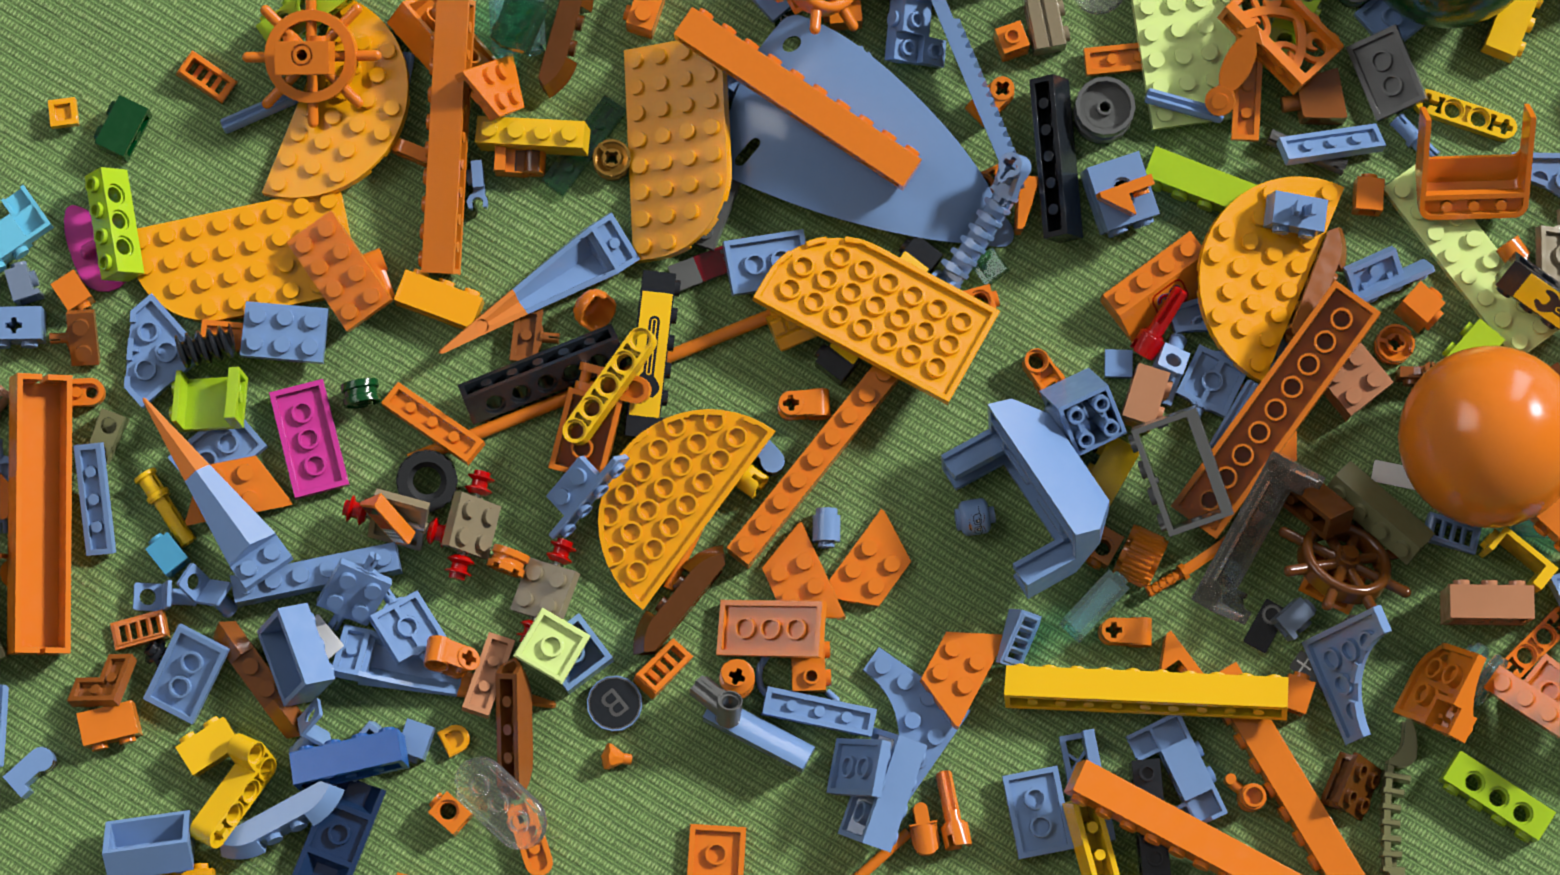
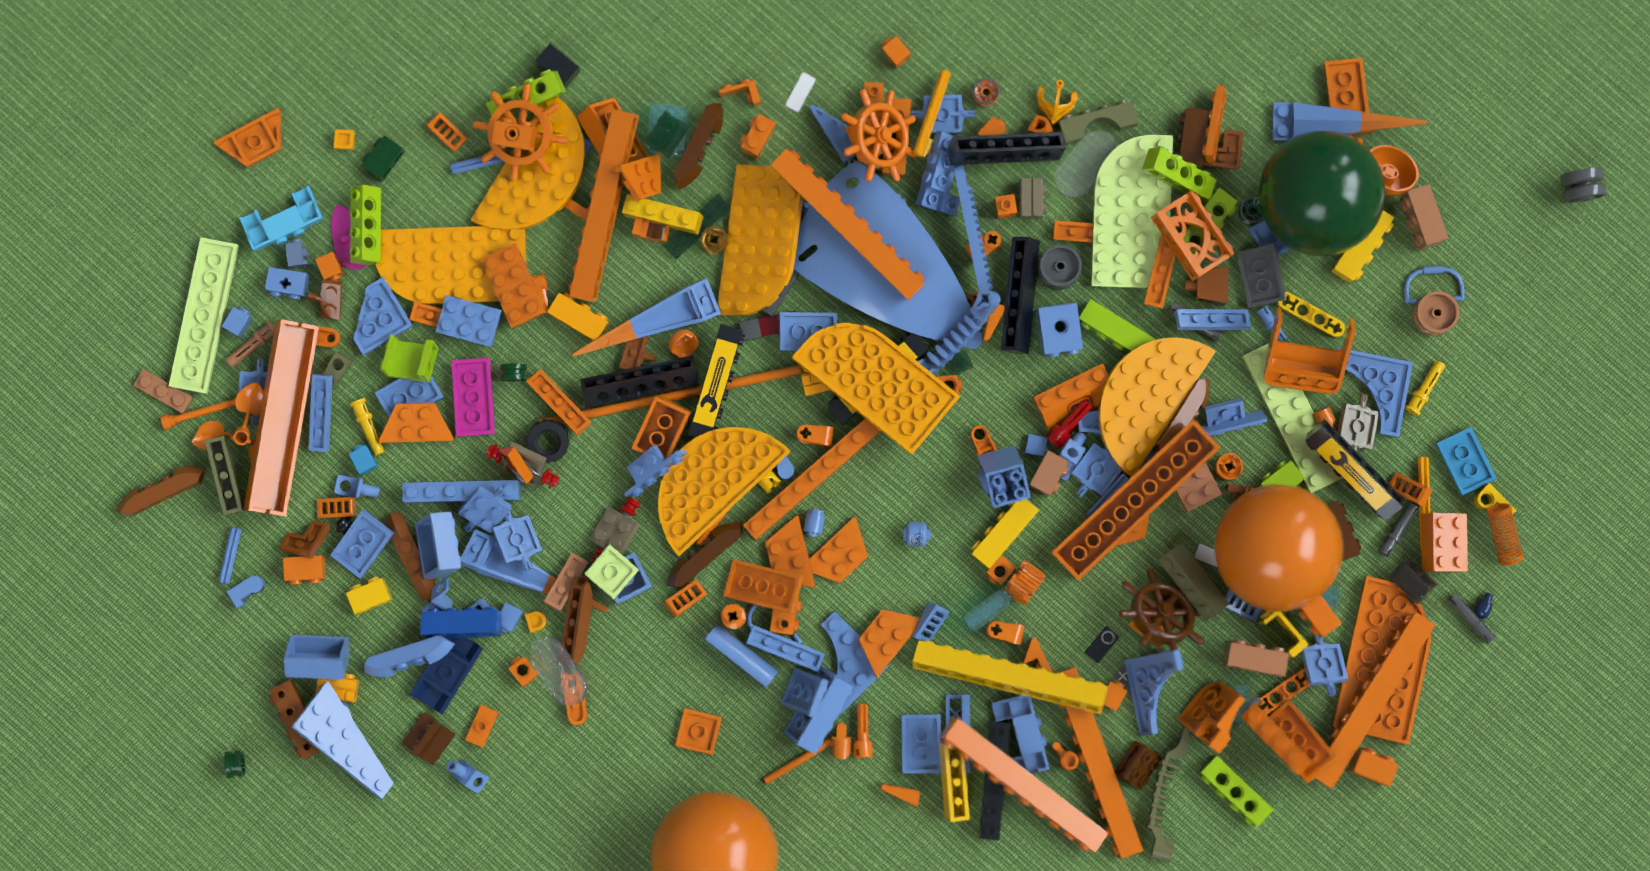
camera: 15 degrees right, 5 degrees up
(206, 346) = (413, 322): black piece -> none
(208, 591) = (386, 490): medium blue bracket -> none
(237, 791) = (381, 631): yellow beam -> none
(242, 535) = (414, 456): medium blue plate -> none
(331, 641) = (463, 540): white sticker -> none
(450, 657) = (541, 566): orange piece -> none
(470, 525) = (572, 477): dark tan plate -> none
(475, 178) = (619, 237): medium blue plate -> none
(508, 561) = (593, 506): orange wheel -> none
(608, 400) = (691, 398): yellow beam -> none
(614, 703) = (648, 616): black tile -> none
(614, 757) = (641, 653): orange rock -> none
(636, 393) = (686, 399): orange plate -> none
(723, 703) = (717, 630): dark grey piece -> none
(1050, 479) = (972, 519): medium blue wedge -> none
(1119, 196) = (1056, 332): orange slope -> none
(1180, 105) = (1116, 274): medium blue axle -> none
(1183, 571) = (1052, 597): orange sword -> none
(1208, 460) = (1081, 527): dark grey hose -> none
(1220, 584) = (1073, 616): clear smoke windscreen -> none
(1234, 71) = (1154, 258): orange brick -> none
(1294, 618) = (1122, 643): sand blue brick -> none
(1295, 214) = (1176, 365): medium blue brick -> none
(1321, 511) = (1149, 567): reddish brown brick -> none
(1368, 195) = (1231, 359): orange brick -> none
(1421, 307) = (1252, 445): orange brick -> none

